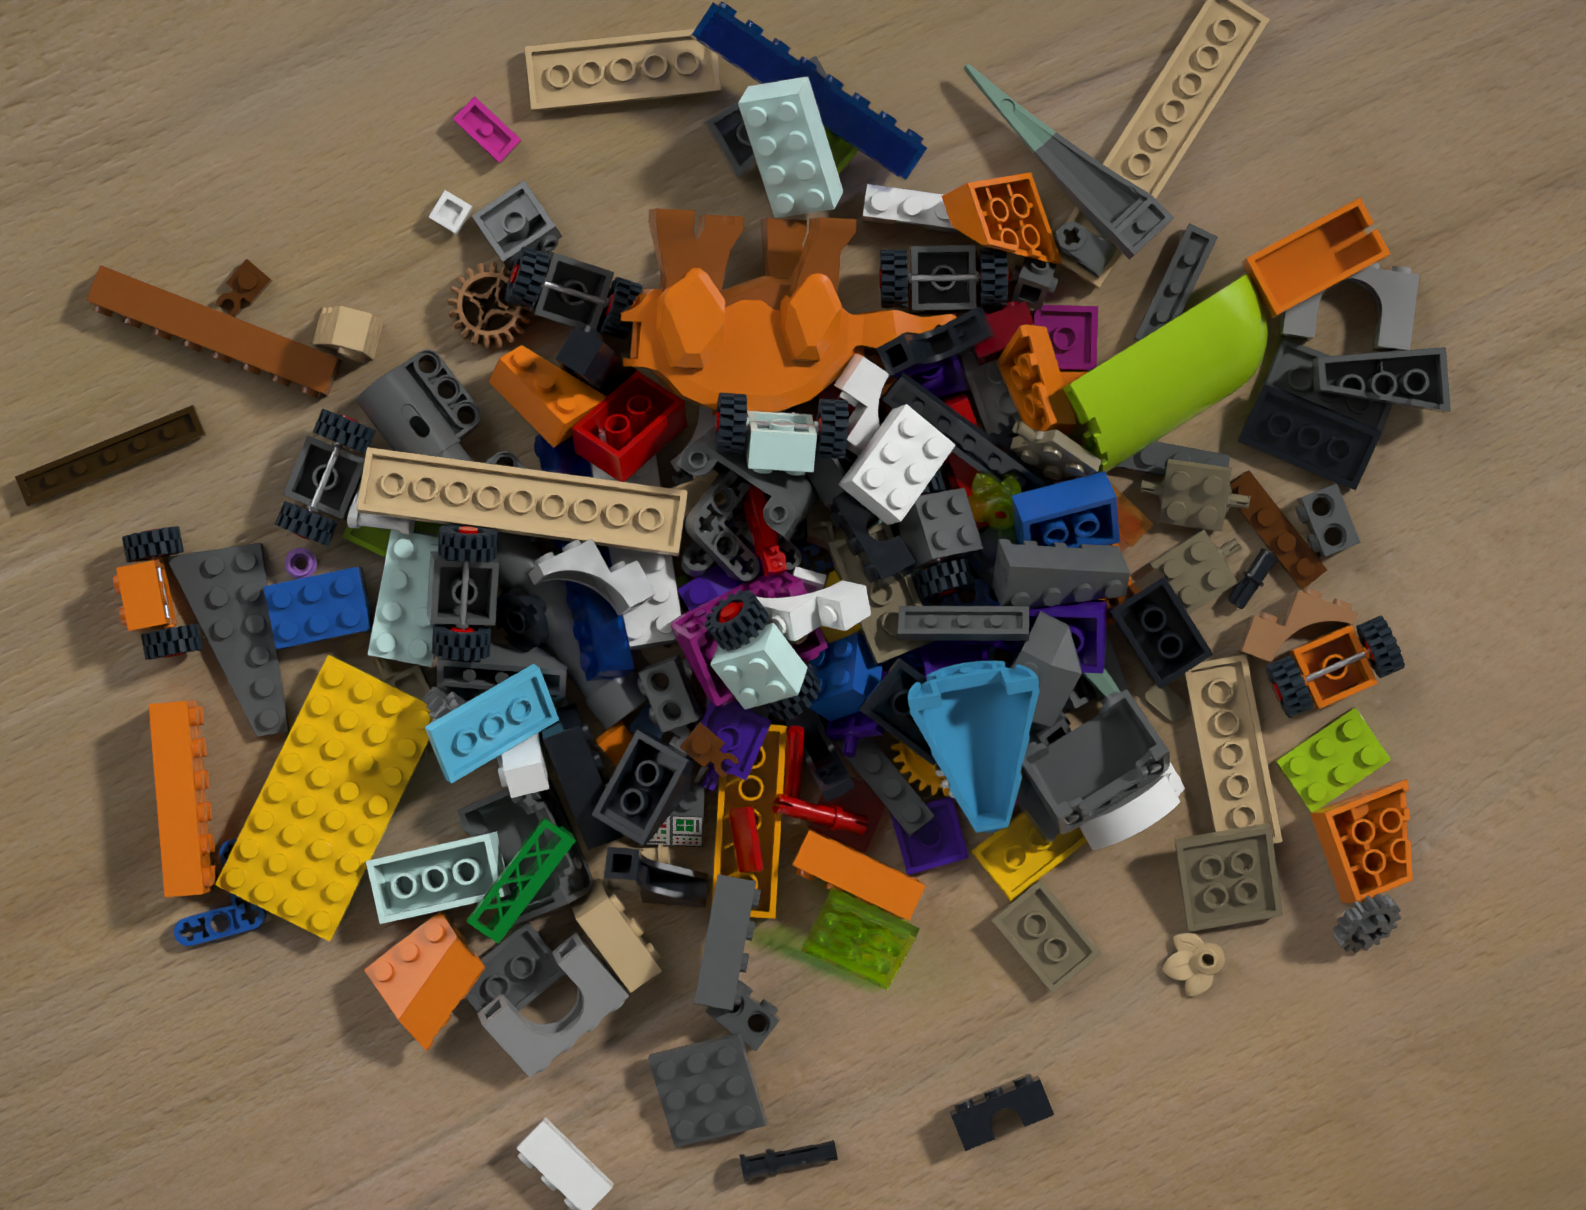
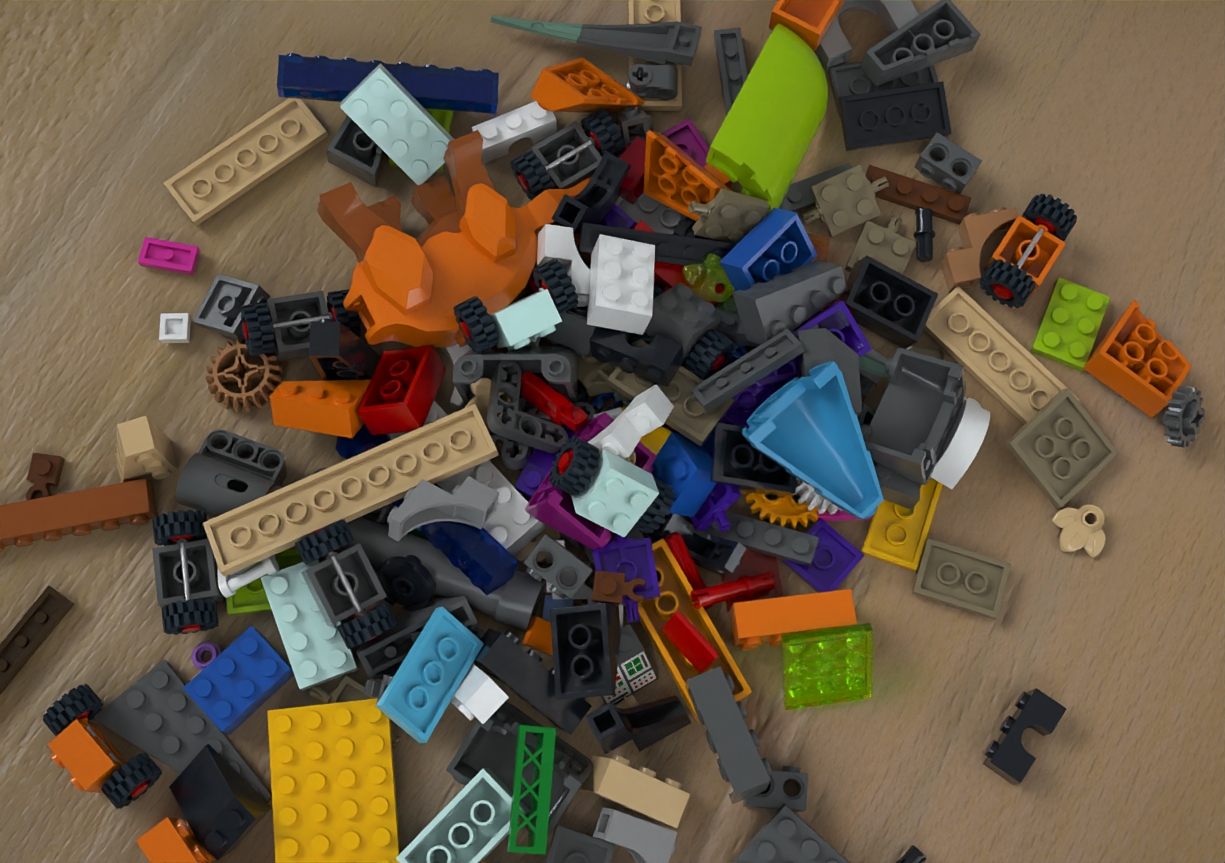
camera: 30 degrees left, 15 degrees down
(236, 708) = (217, 802): none -> black slope

